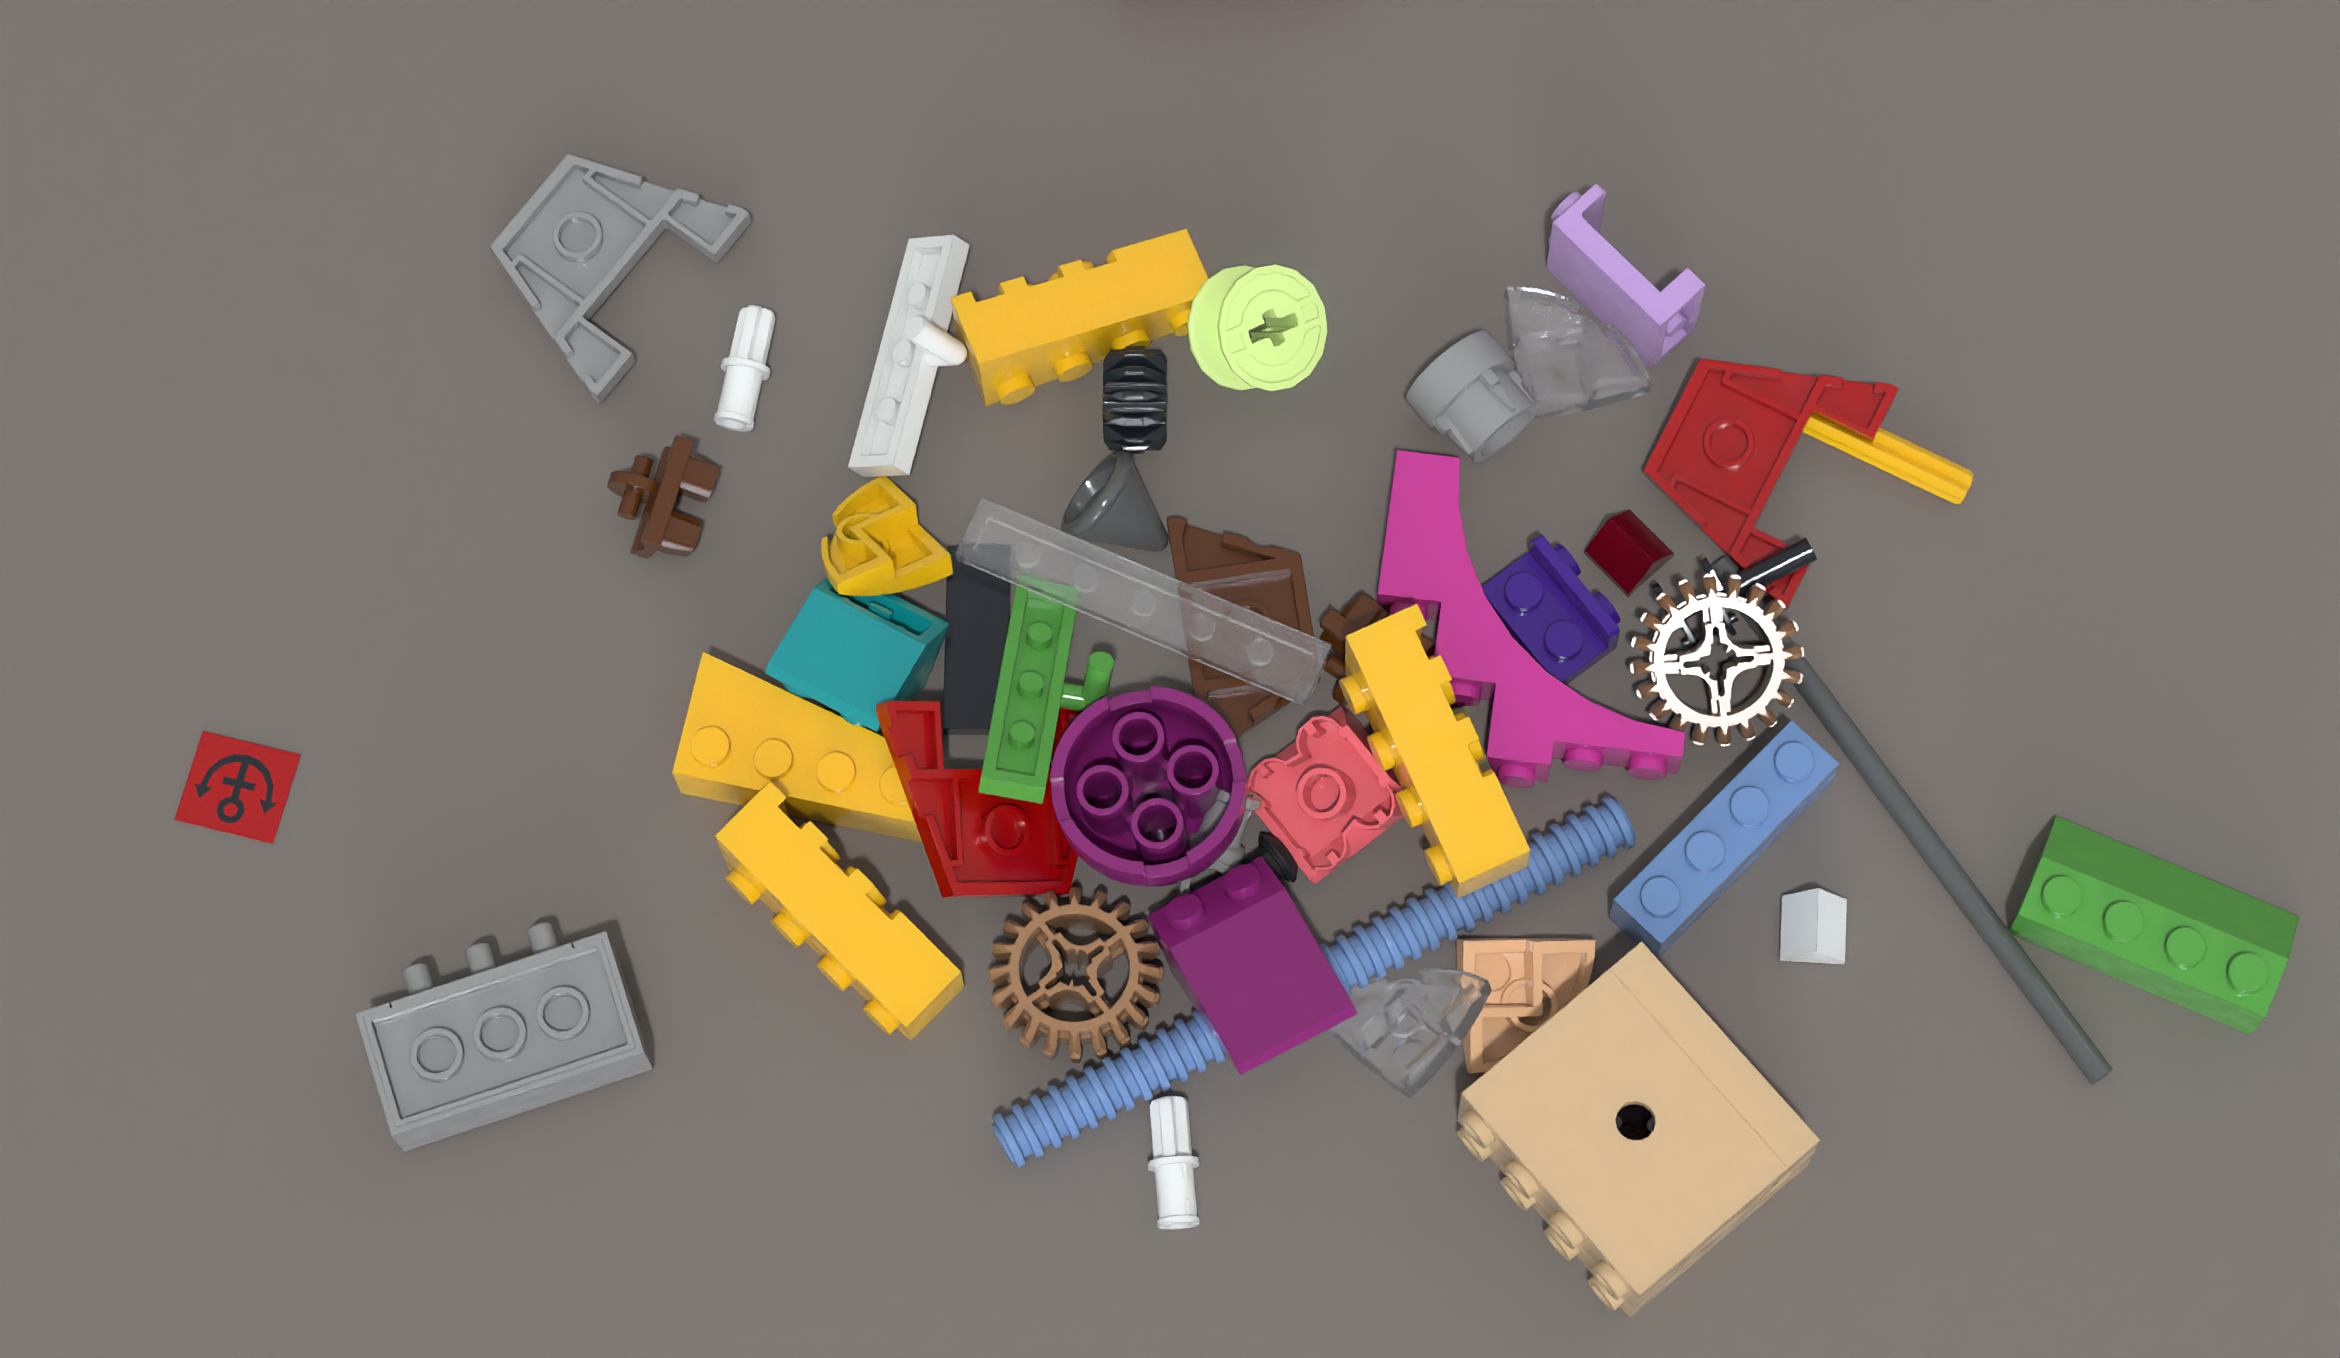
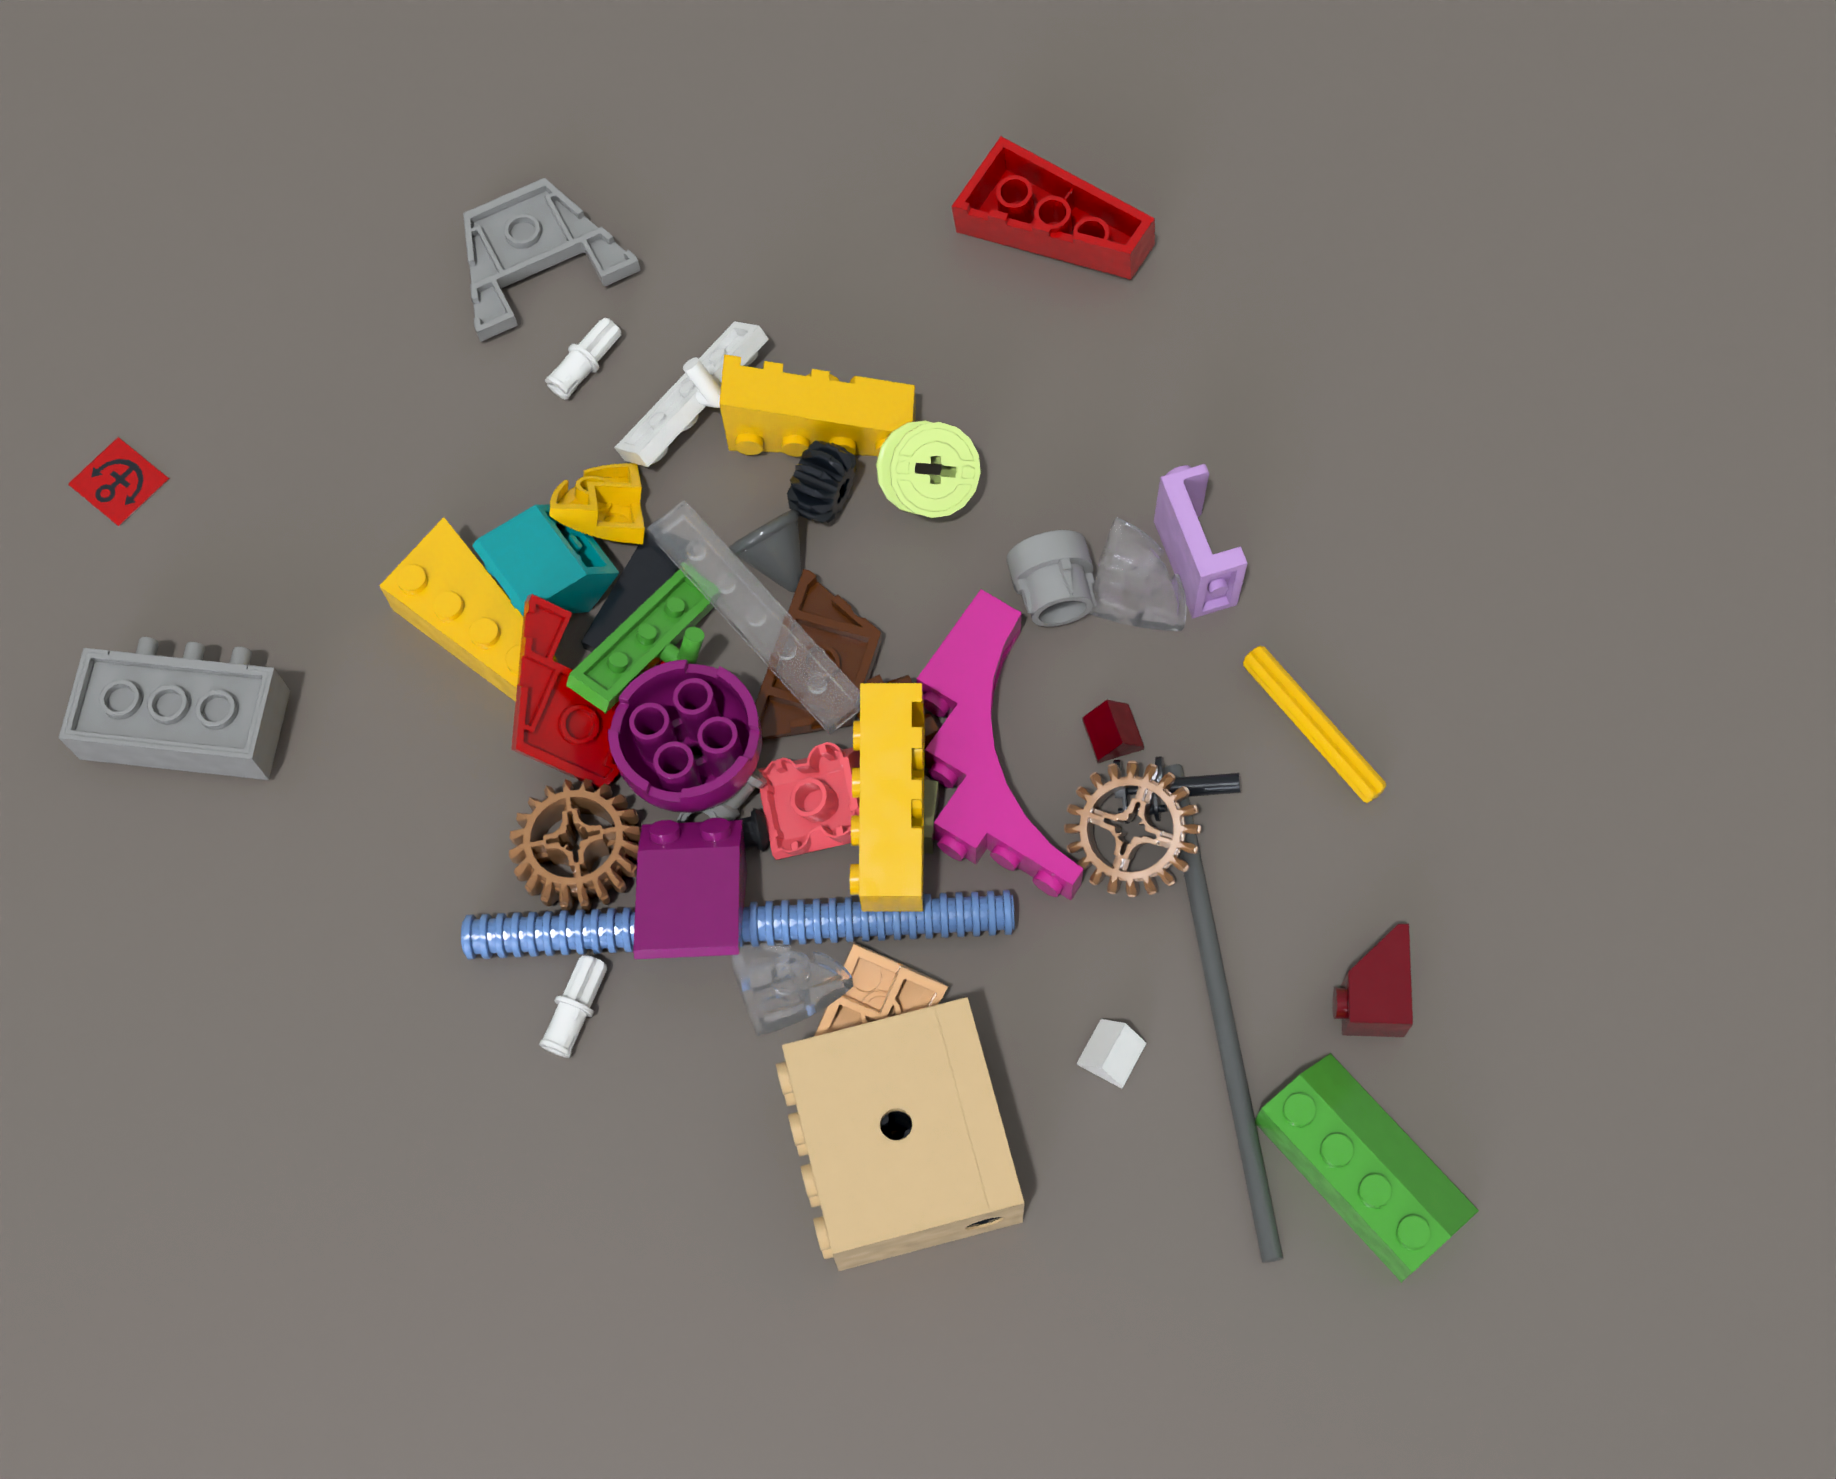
camera: 25 degrees right, 5 degrees down
(676, 474) = (471, 429): reddish brown hips -> none
(836, 915) = (438, 728): yellow wedge -> none
(1554, 611) = (1036, 750): dark purple bracket -> none
(1724, 840) = (1075, 959): medium blue brick -> none
(1735, 441) = (1226, 686): red wing -> none
(2078, 718) = (1378, 990): none -> dark red slope

